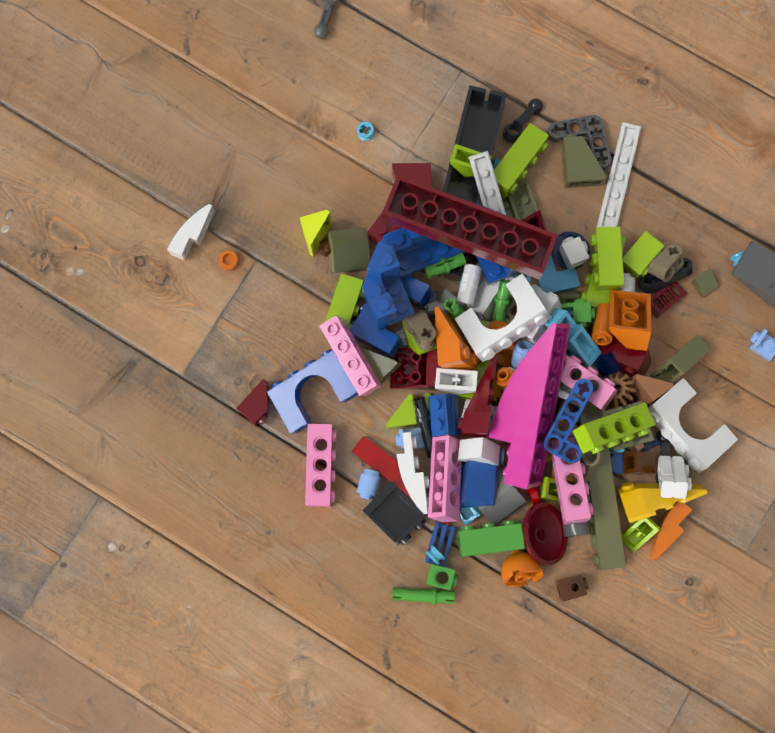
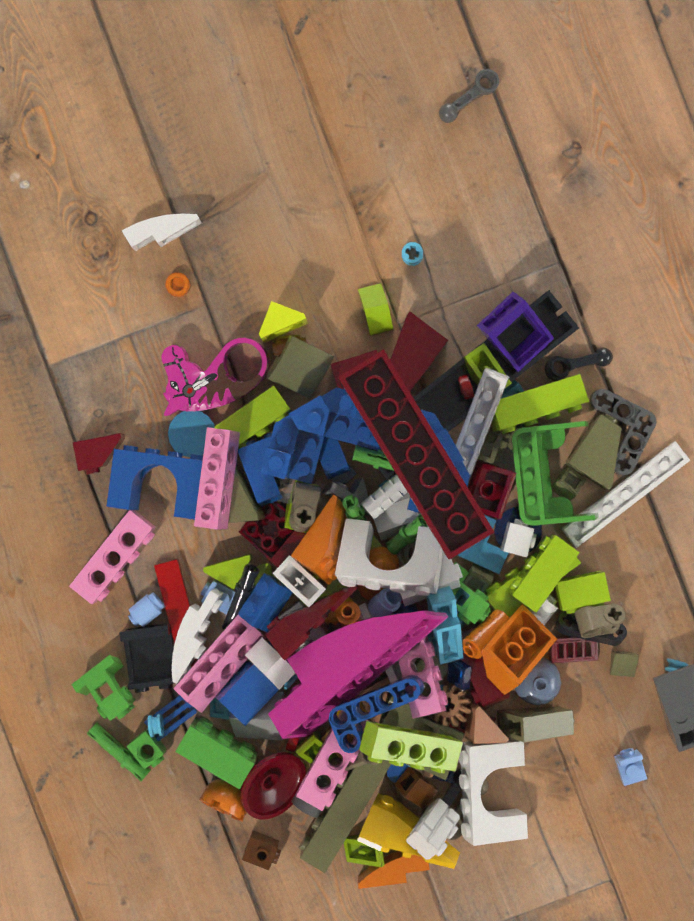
camera: 30 degrees right, 10 degrees up
(294, 314) = (198, 390): none -> dark pink animal
(309, 345) = (189, 431): none -> dark azure tile
(369, 181) = (376, 309): none -> lime slope
(397, 558) = (117, 703): none -> bright green tile
(454, 118) = (502, 317): none -> dark purple window
(465, 182) = (465, 387): none -> red tile
(535, 189) = (534, 479): none -> bright green windscreen
(577, 198) = (568, 483): none -> olive slope
(663, 336) = (541, 683): none -> sand blue cylinder

